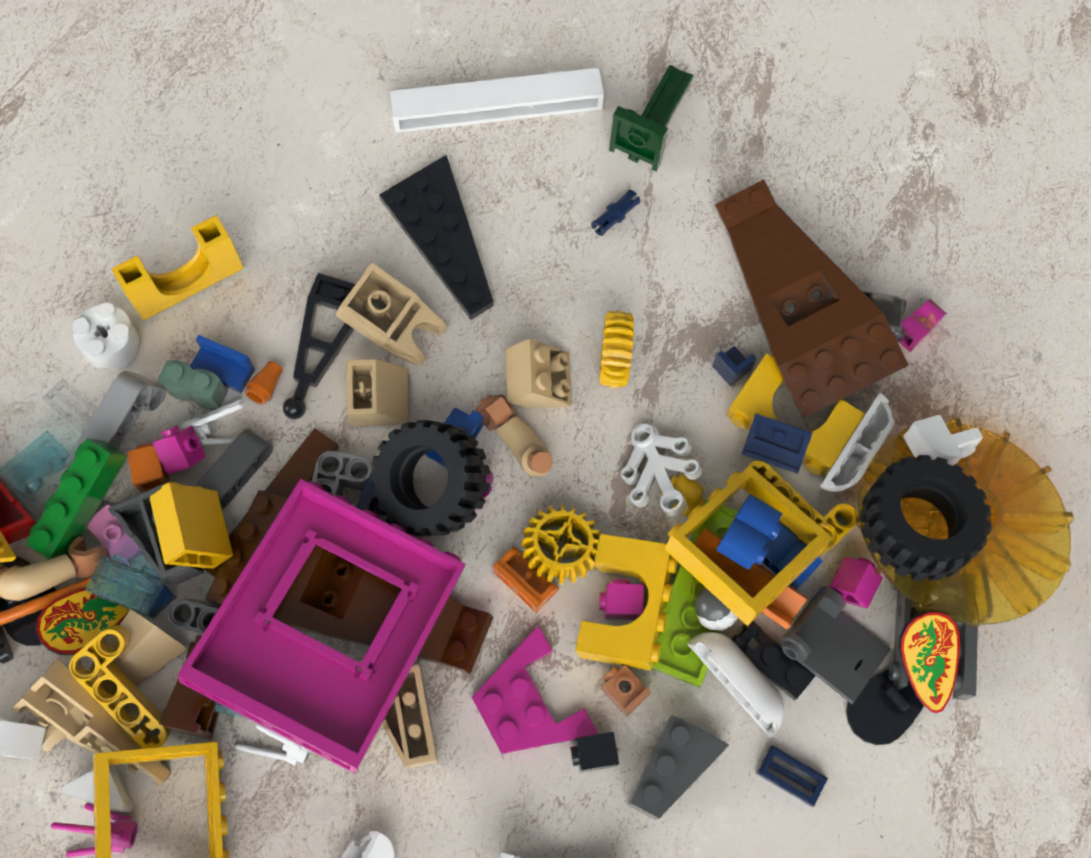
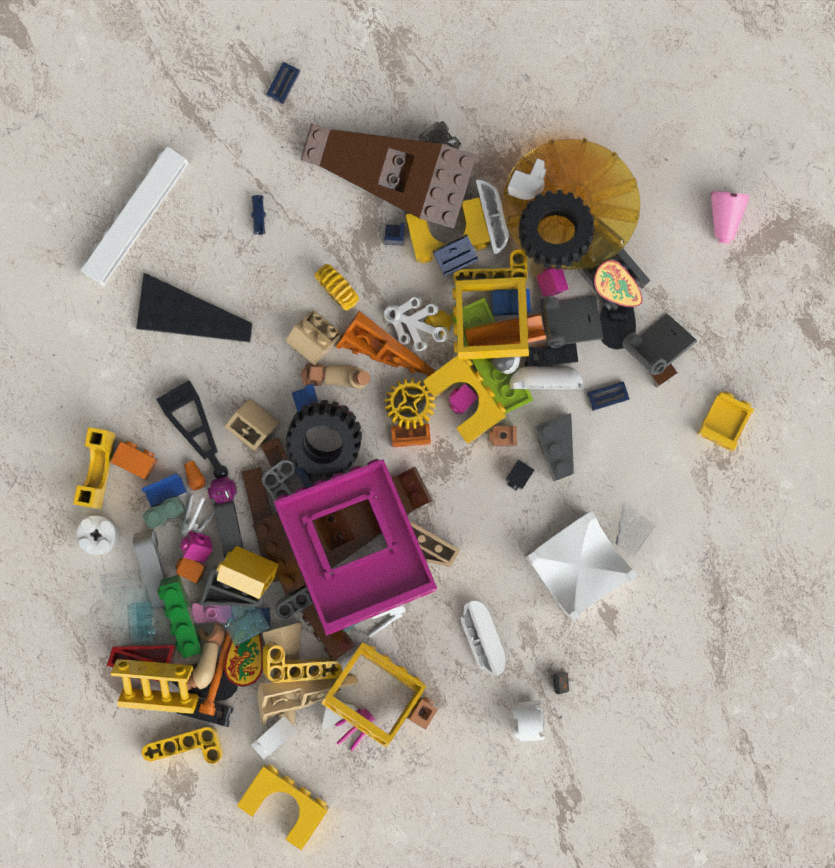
camera: 45 degrees left, 15 degrees up
(228, 307) = (134, 460): none -> orange brick
(273, 424) = (222, 489): none -> magenta head
(369, 439) = (274, 451): none -> reddish brown panel
(396, 318) = (221, 383): tan brick -> none
(515, 708) = (465, 493): dark pink wing -> none
(594, 442) = (369, 339): none -> orange wedge
(646, 135) = (229, 161): dark green bracket -> none
(750, 531) = (489, 315): blue brick -> none
(775, 131) = (276, 96): none -> dark blue tile
(886, 817) = (660, 378): none -> reddish brown panel
(914, 780) = (658, 344): none -> dark grey door
(921, 323) = (458, 120): dark pink leg -> none

